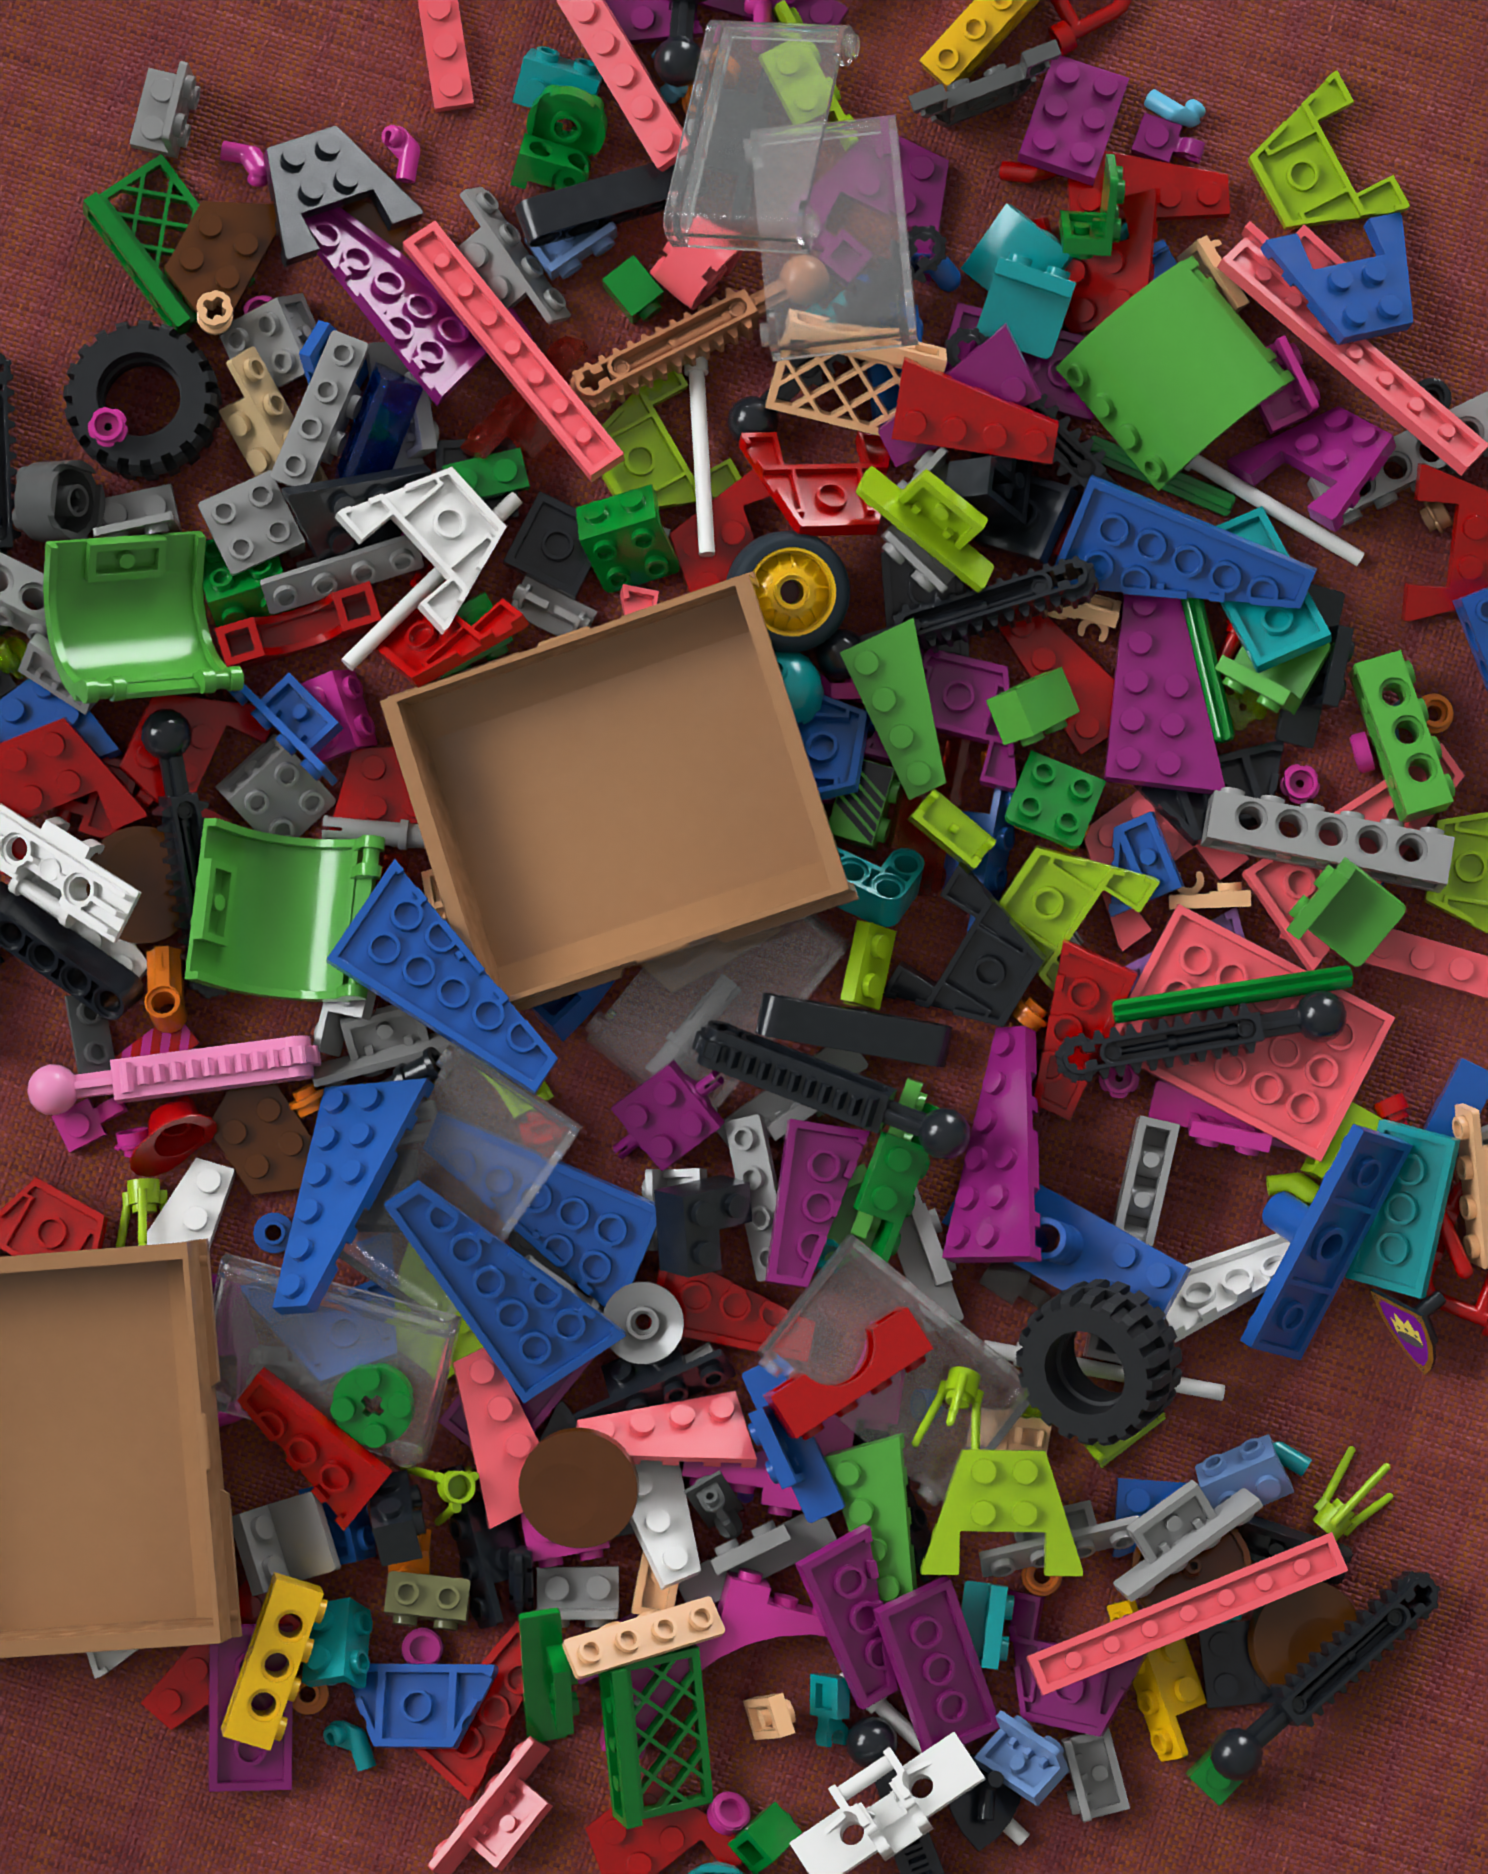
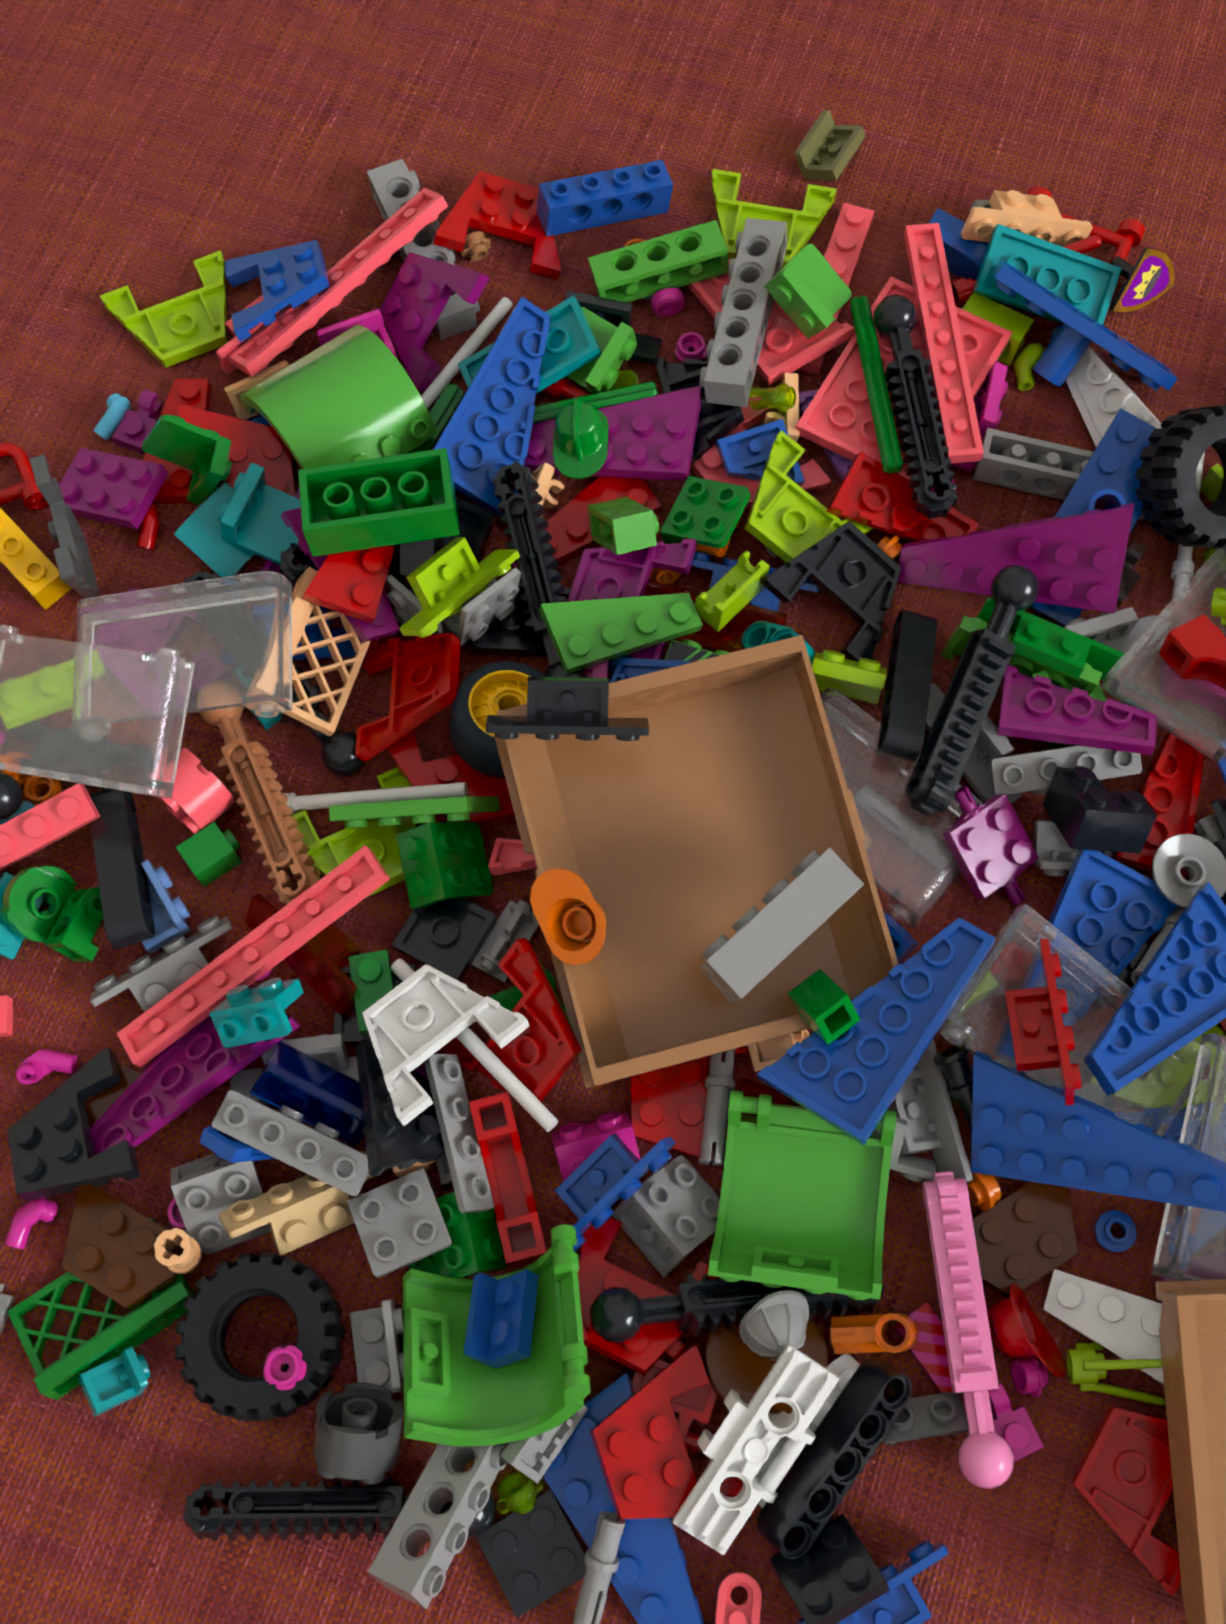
camera: 85 degrees left, 15 degrees down
(99, 267) = (115, 1381): none -> teal bracket
(162, 626) = (501, 1318): none -> blue bracket
(163, 888) = (776, 1323): none -> light grey piece
(447, 360) = (256, 1012): none -> teal bracket
(456, 1140) = (1038, 1026): none -> red bracket
(458, 919) = (824, 1006): none -> green brick
(530, 870) = (781, 926): none -> light grey brick
(531, 662) = (568, 916): none -> orange piece
(676, 505) = (420, 810): none -> bright green wing
(743, 645) = (567, 707): none -> black bracket
(1006, 430) = (378, 502): none -> green brick
(1148, 655) = (580, 440): none -> green piece
(1210, 883) = (777, 397): none -> clear neon green pin
(1295, 1073) = (943, 342): none -> coral plate

